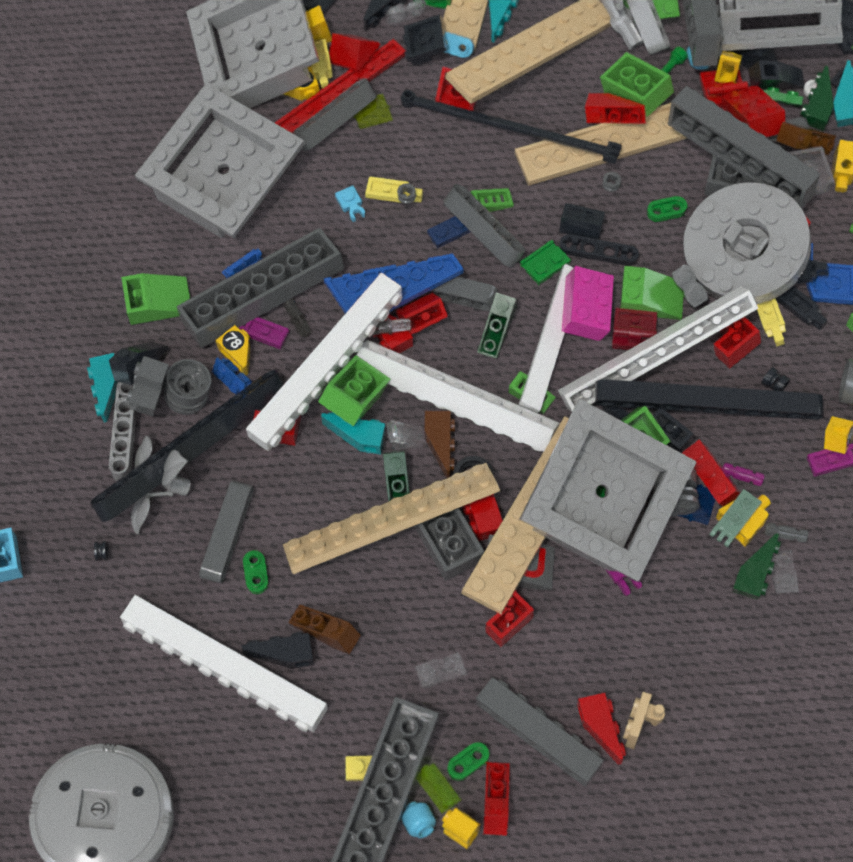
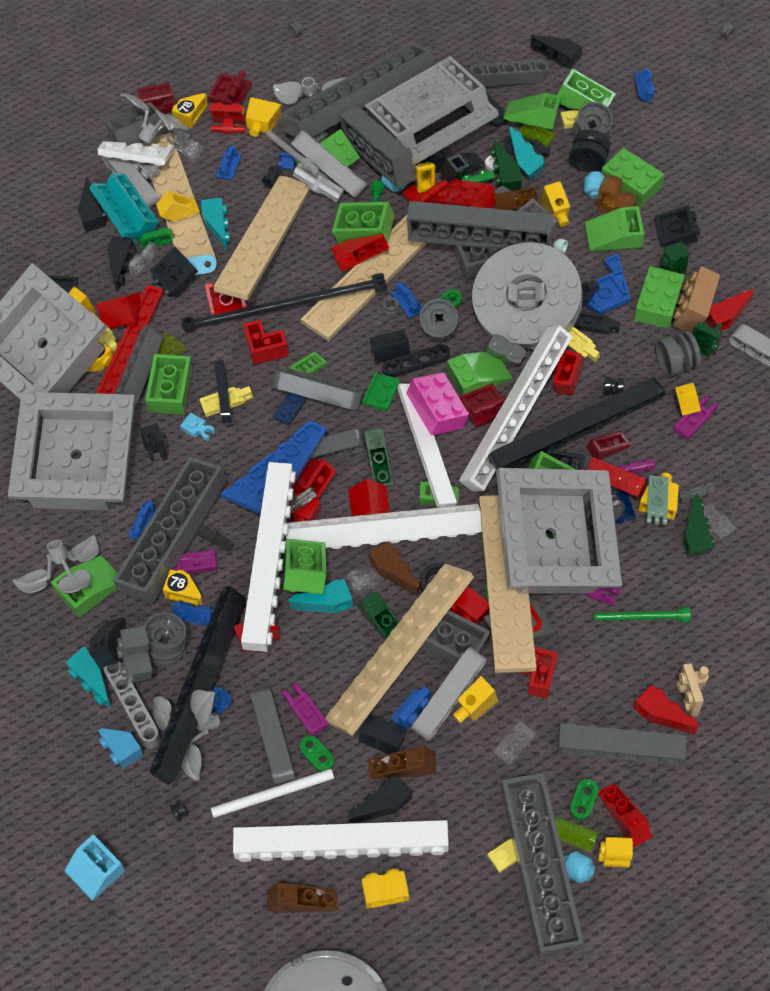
camera: 30 degrees left, 5 degrees down
(90, 463) = (122, 746): none -> dark azure slope
(144, 289) = (73, 582): none -> light grey plant
(154, 695) = (300, 898): none -> reddish brown slope
(193, 584) = (272, 793): none -> white piece
(200, 471) = (221, 701): none -> blue gear
(232, 731) = (385, 889): none -> yellow brick
(271, 527) = (305, 710): none -> magenta hinge
(299, 194) = (153, 441): none -> black hinge
(324, 589) = (381, 735): none -> black hinge
(349, 147) = (169, 384): none -> bright green brick
(367, 581) = (411, 708): none -> blue bracket
(392, 181) = (223, 394): none -> black beam
(403, 198) = (238, 391): dark grey bush -> none
(407, 588) = (448, 694): none -> light grey beam
(429, 609) = (478, 694): none -> yellow torso
(461, 157) = (264, 346): none -> red brick
(463, 361) = (368, 498): none -> red slope
(631, 185) = (407, 300): none -> blue hinge
(634, 217) = (440, 328): none -> dark grey wheel
(685, 643) = (681, 615): none -> green piece
(729, 443) = (599, 452): none -> dark red slope
(822, 210) = (561, 245): none -> light aqua hinge

